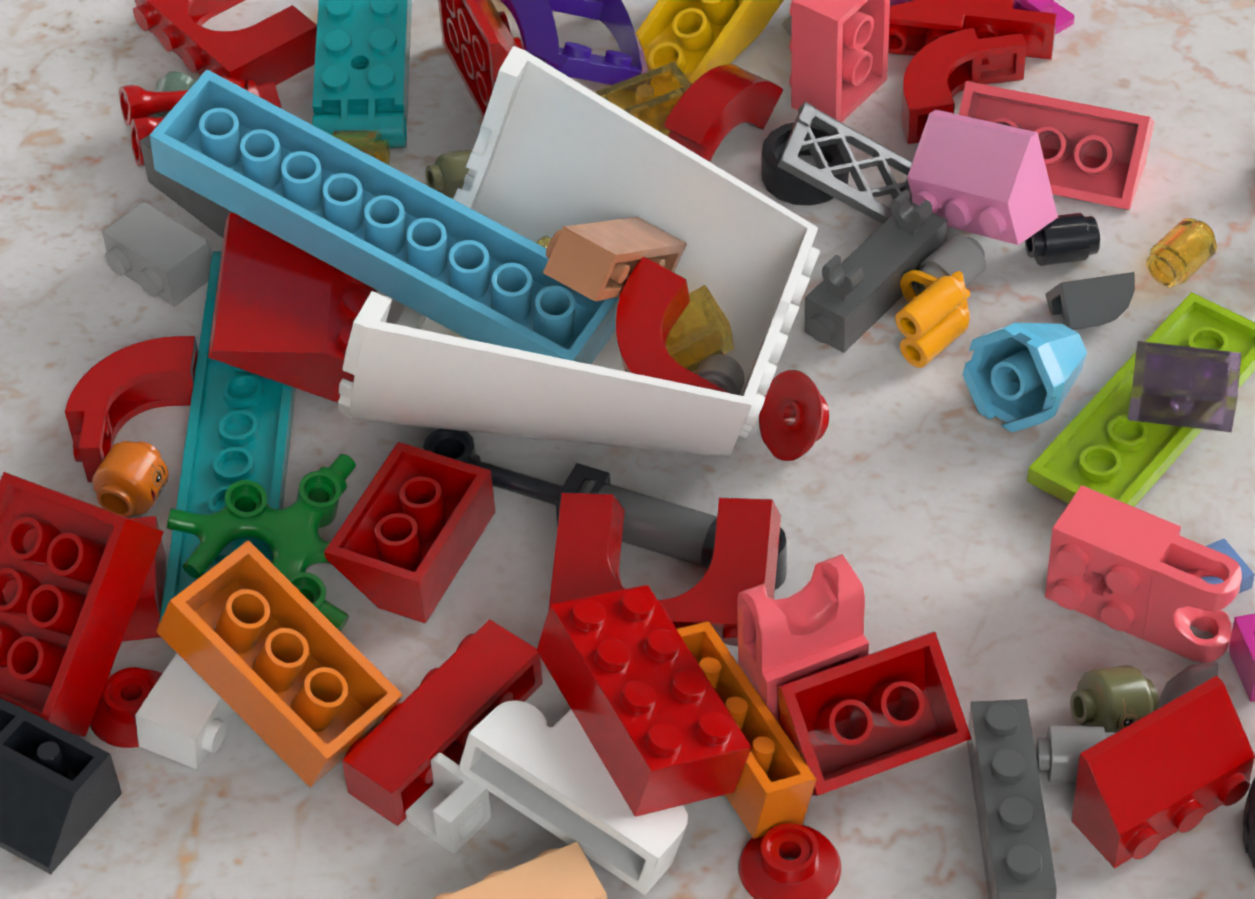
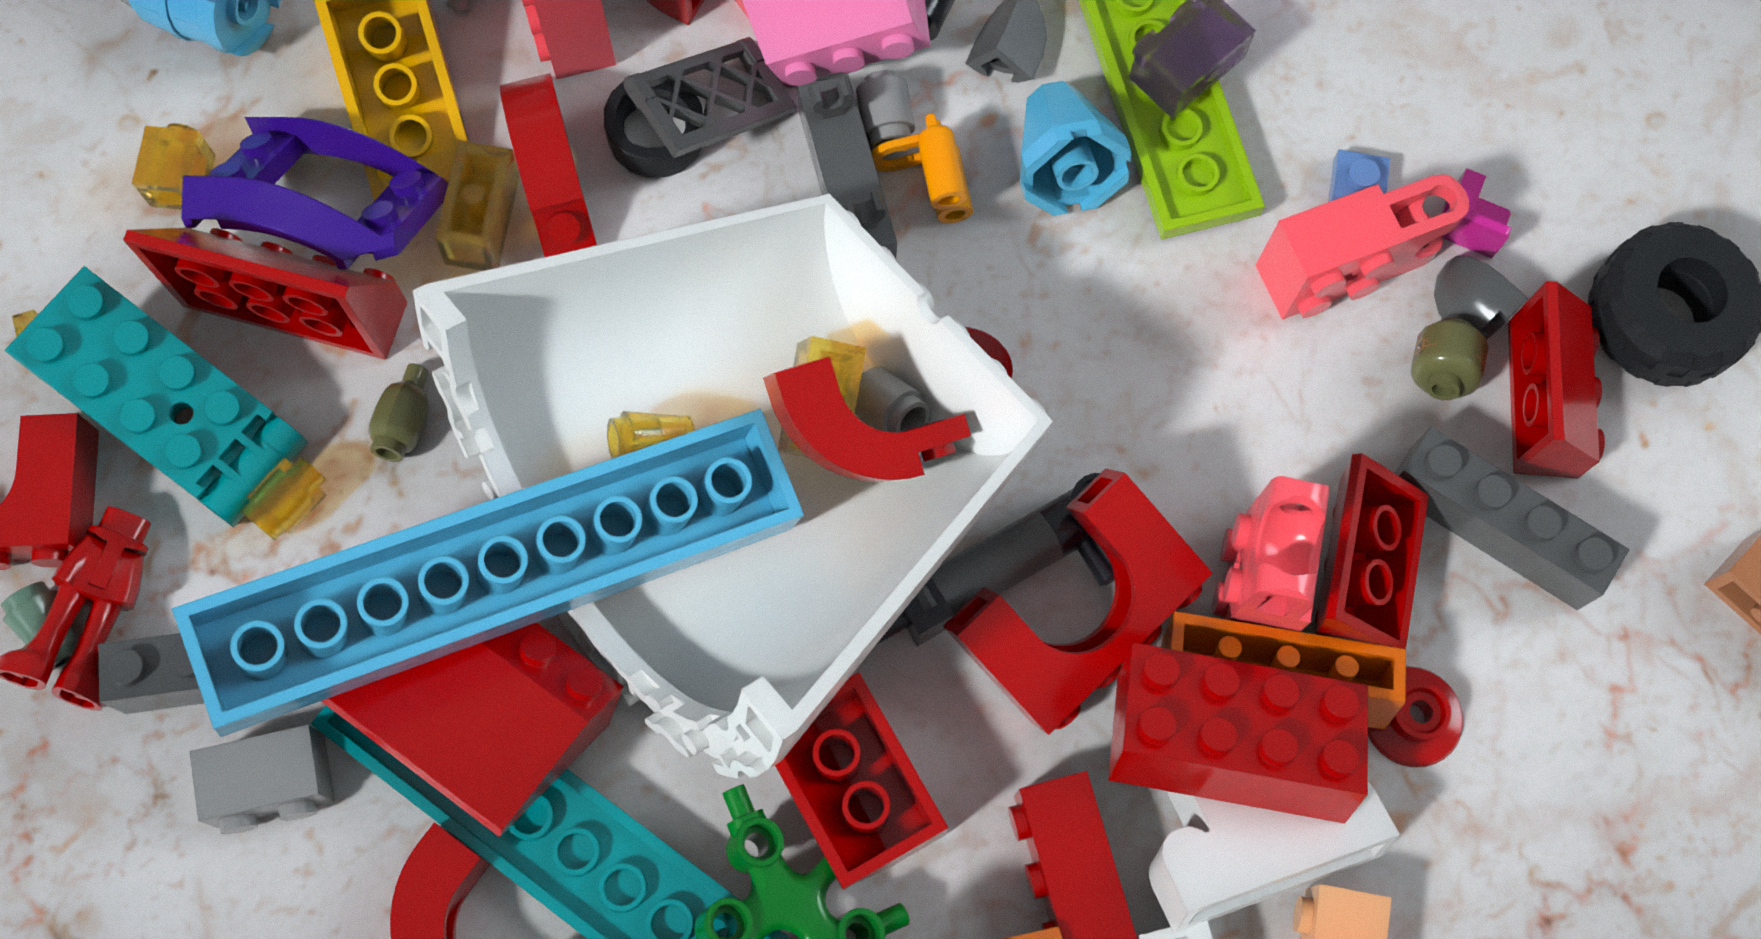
camera: 60 degrees left, 25 degrees up
(603, 254) = (736, 395): nougat brick -> none
(1062, 748) = (1481, 418): light grey brick -> none

